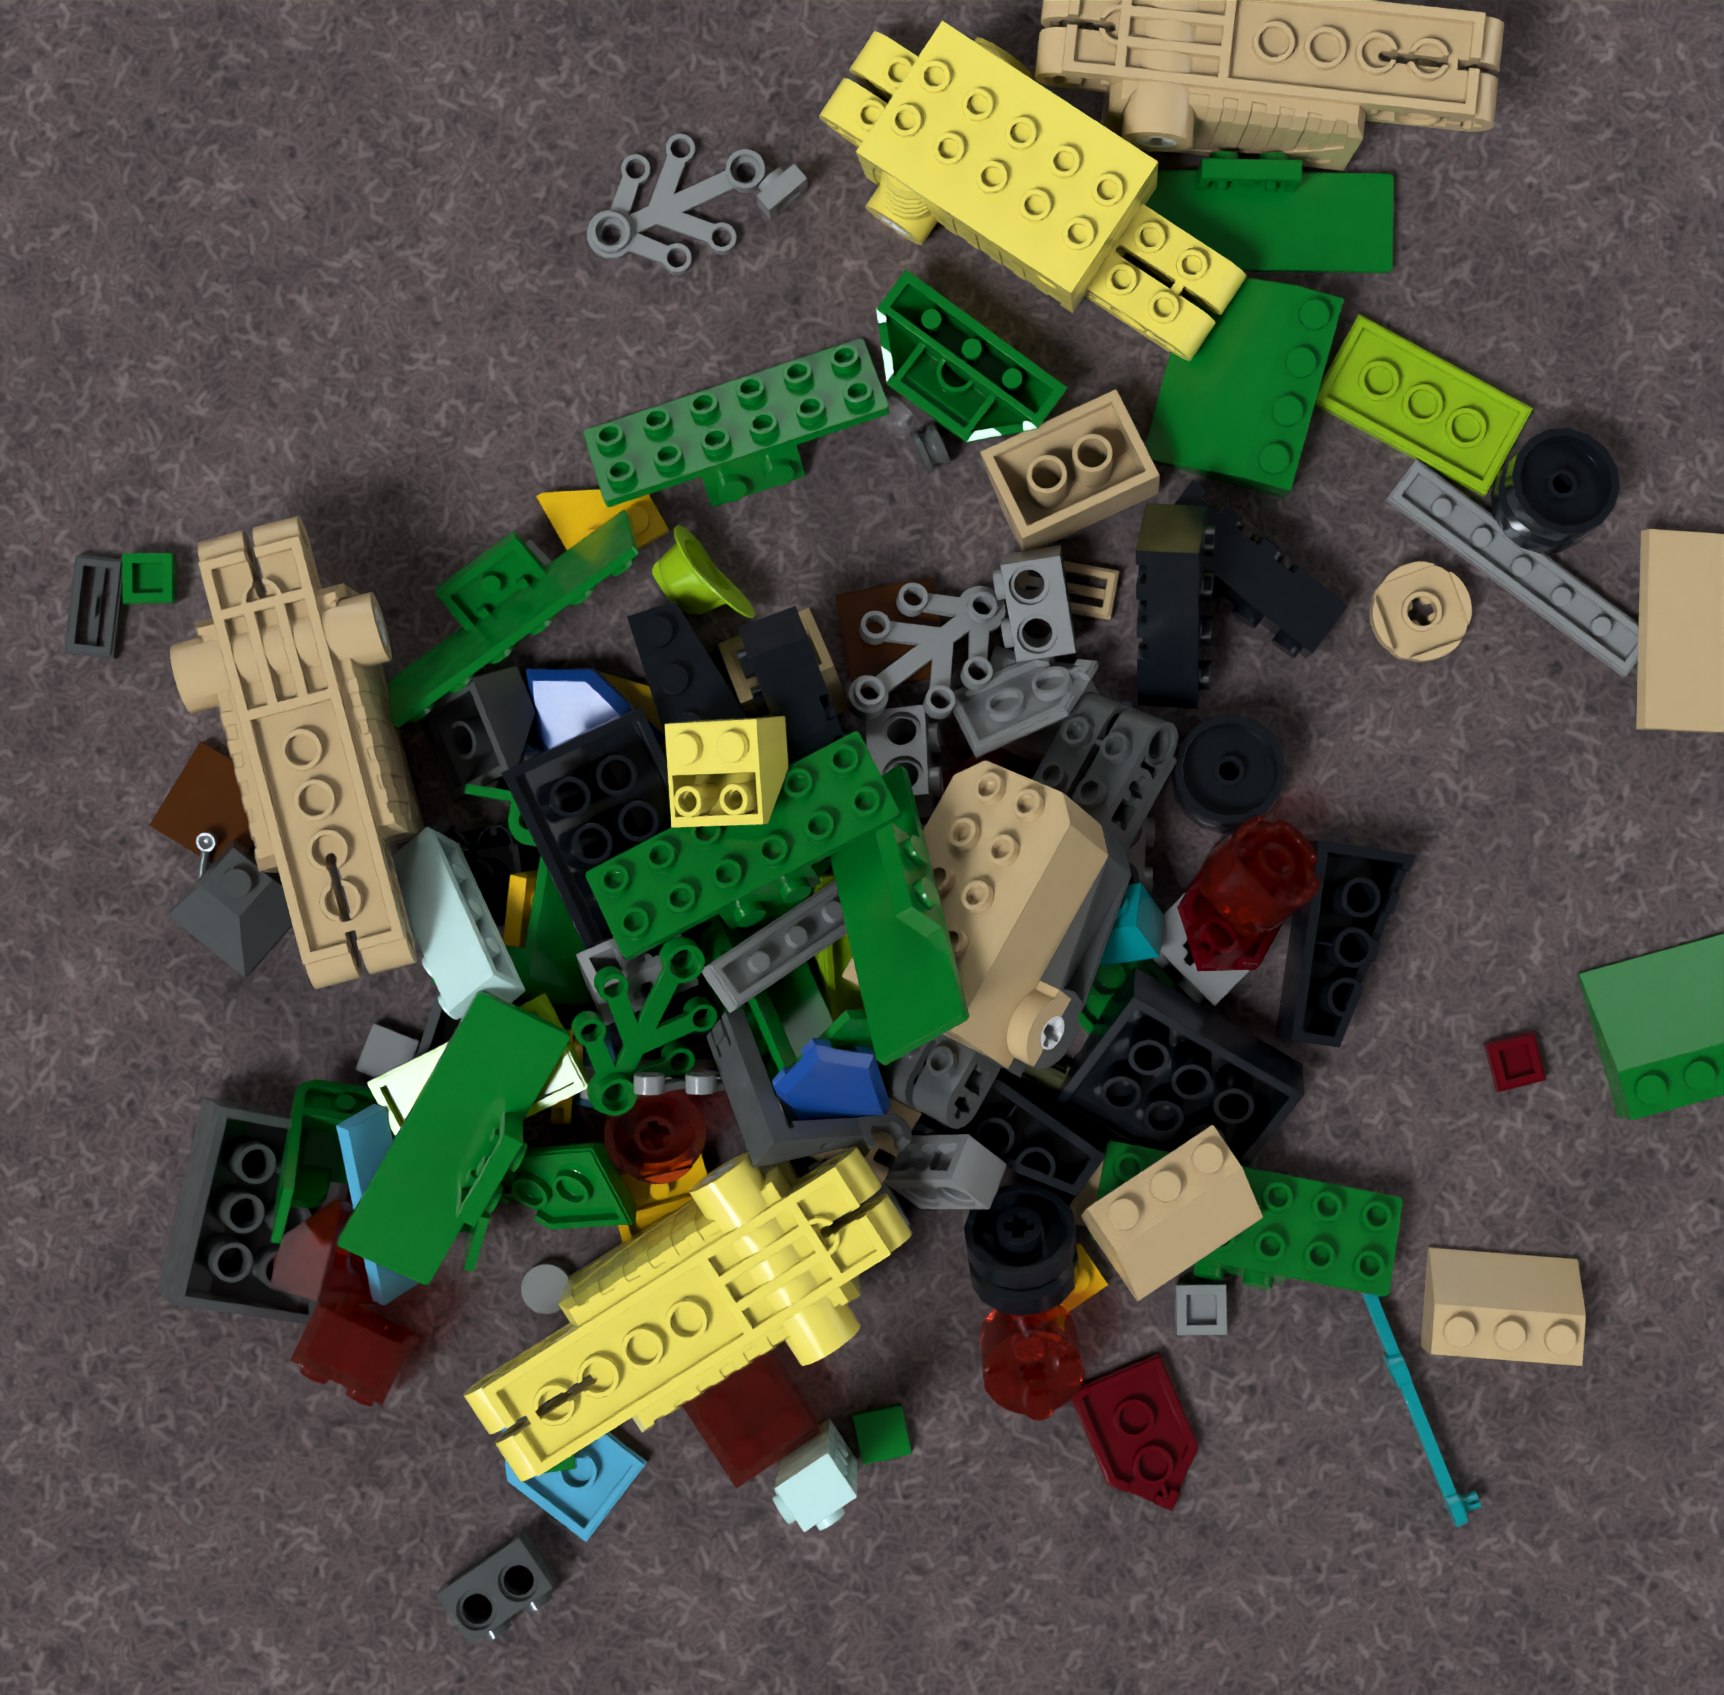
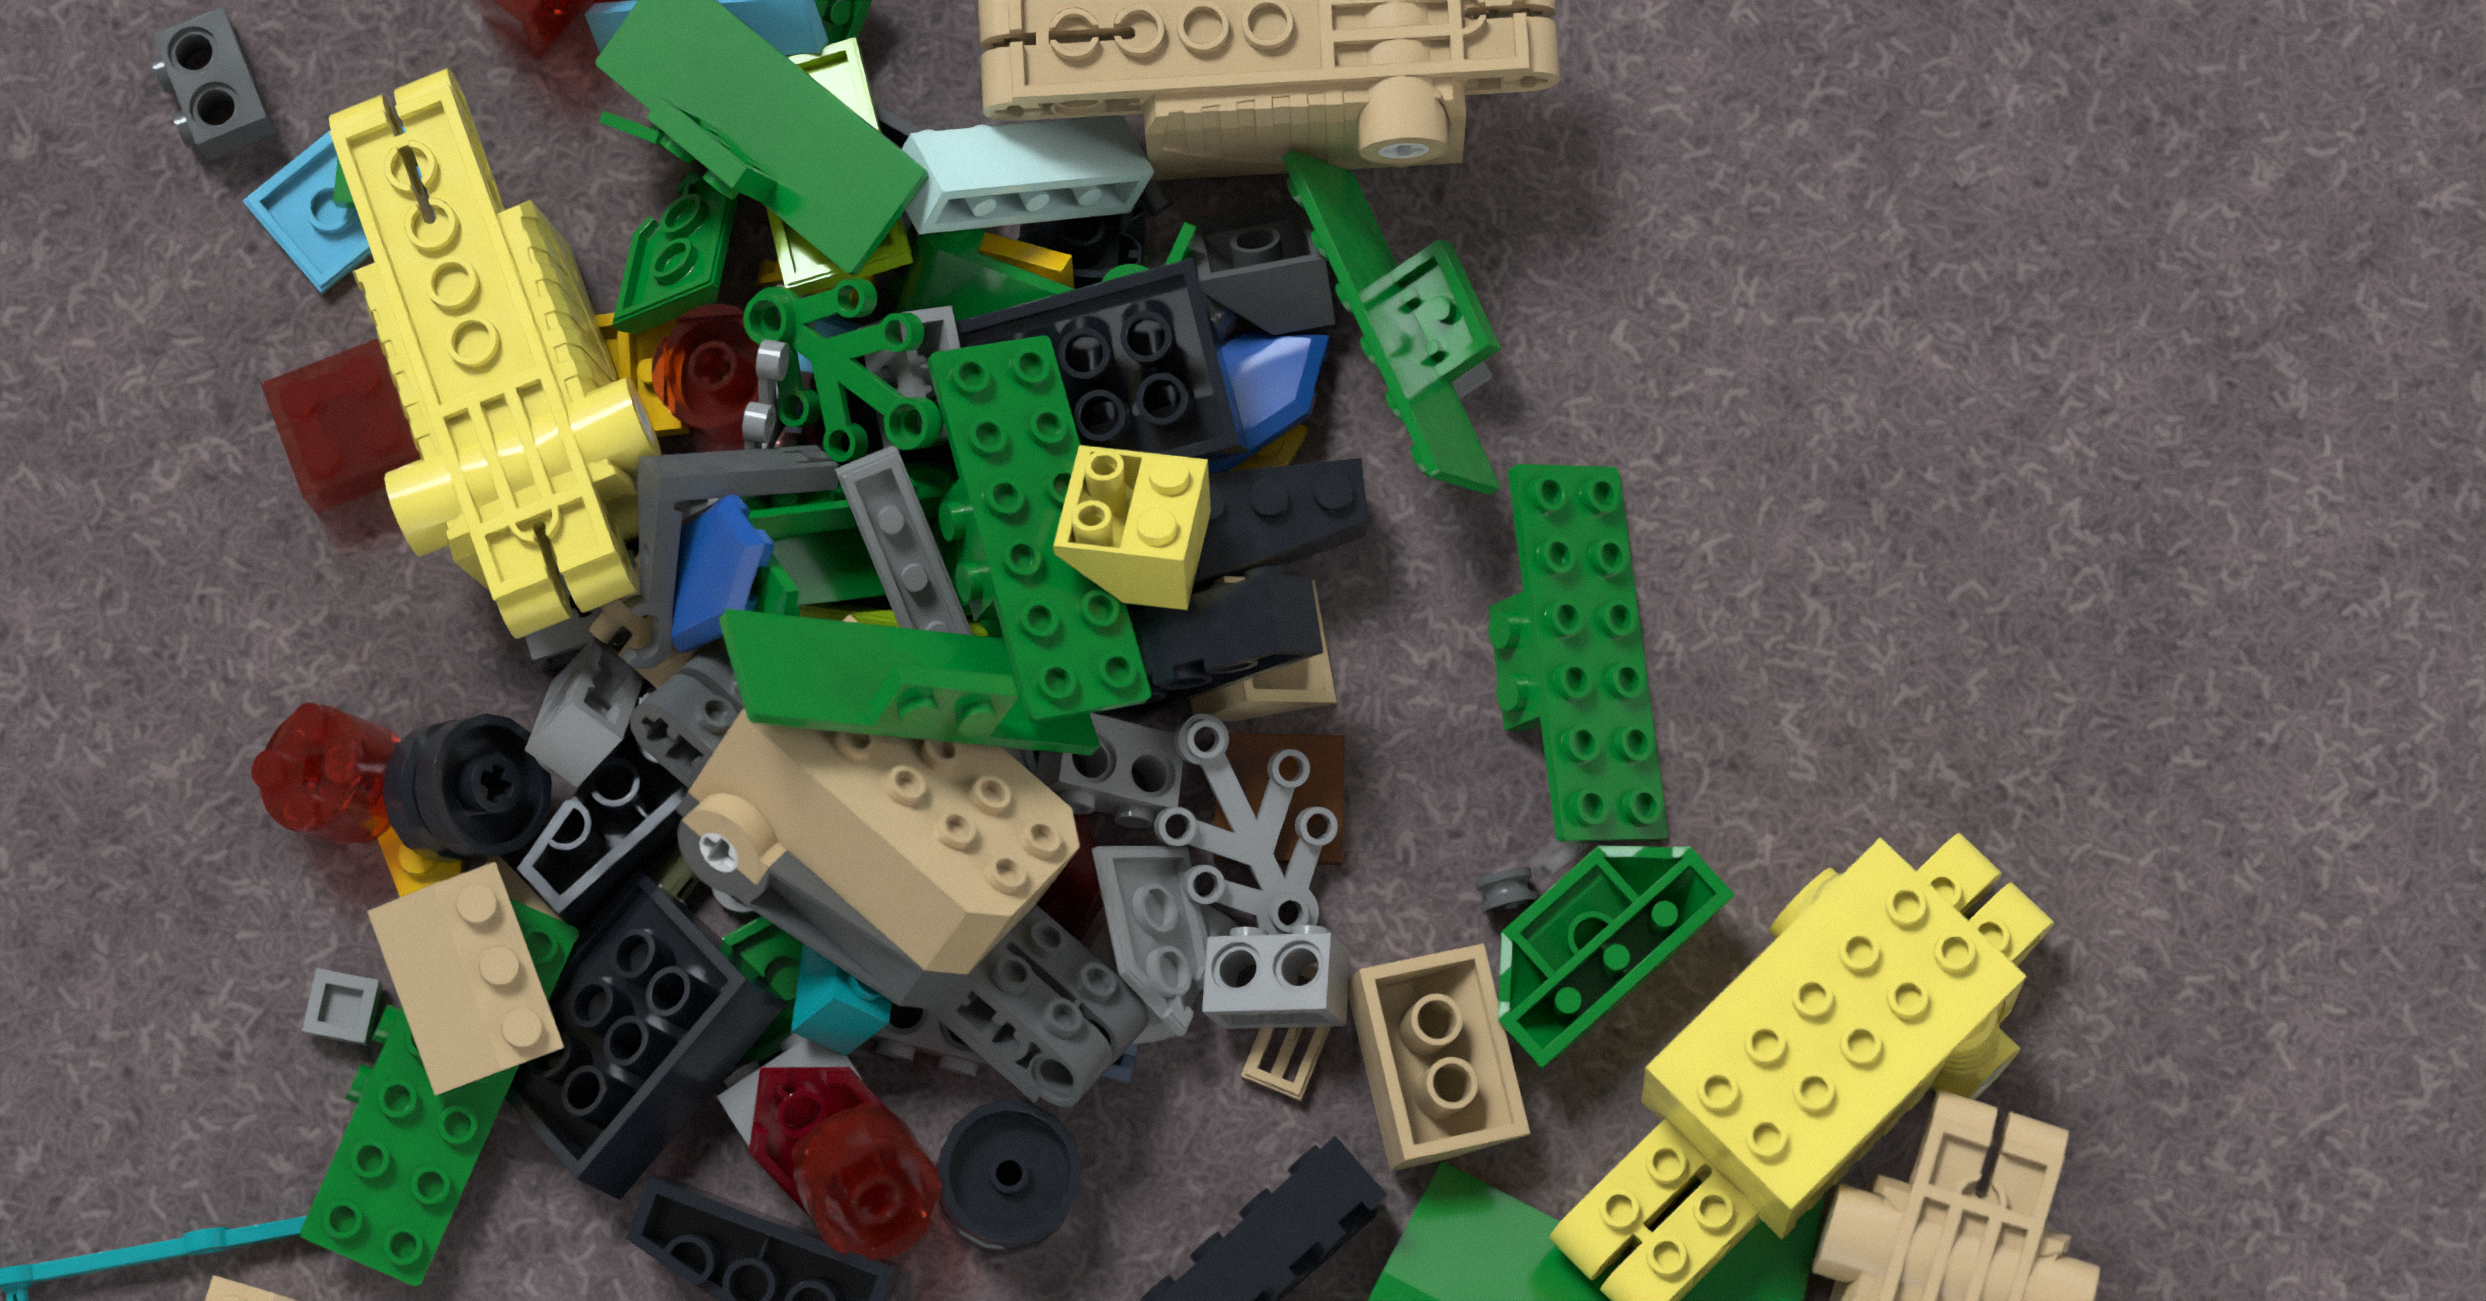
camera: 100 degrees right, 10 degrees down
(386, 1050) = (896, 79): light grey tile -> none
(543, 1287) = (567, 210): light grey tile -> none
(583, 511) = (1509, 437): yellow wing -> none
(668, 208) = (1881, 627): light grey plant -> none
(693, 579) = (1395, 567): lime piece -> none
(781, 190) = (1874, 769): light grey plate -> none
(816, 1480) = (246, 470): light aqua brick -> none
(882, 1433) = (285, 583): green tile -> none
(1138, 1430) = (211, 899): dark red tile -> none
(1171, 605) = (1234, 1136): black wedge -> none

